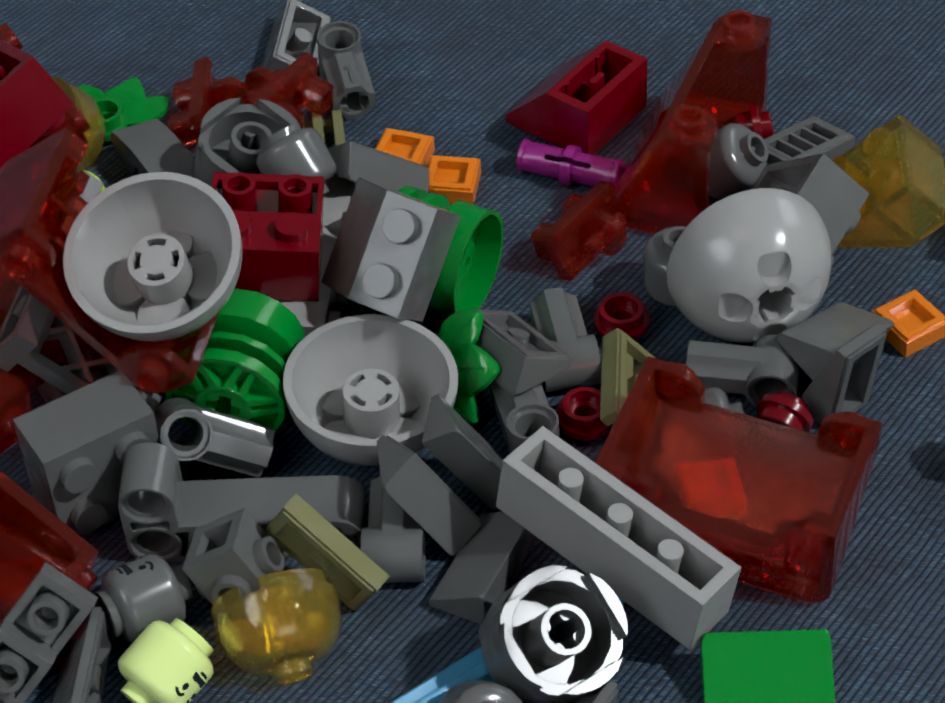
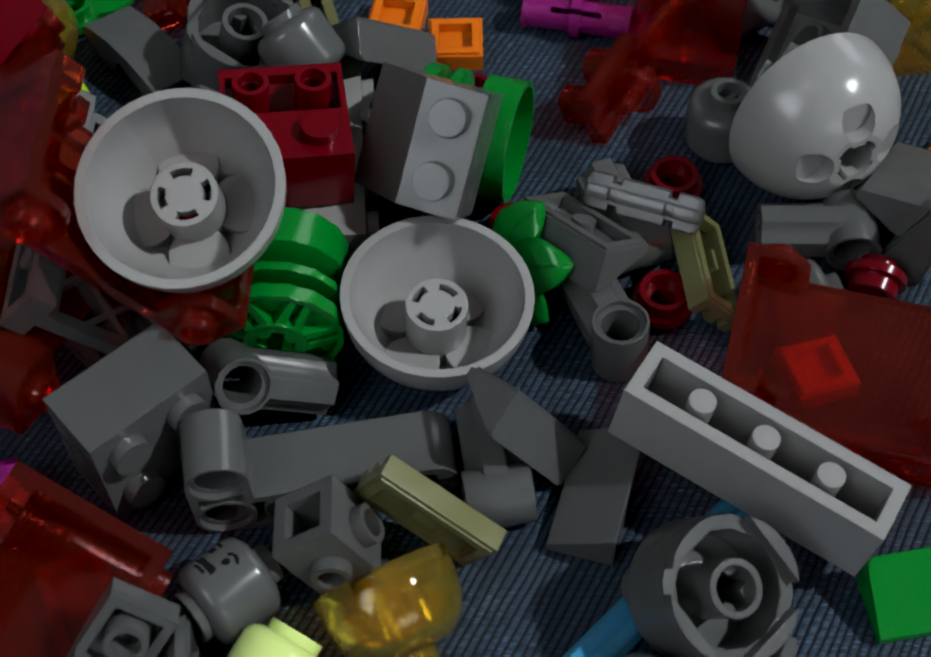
camera: 10 degrees left, 10 degrees up
(463, 451) = (561, 370): dark grey slope -> none
(578, 324) = (644, 201): none -> dark grey axle

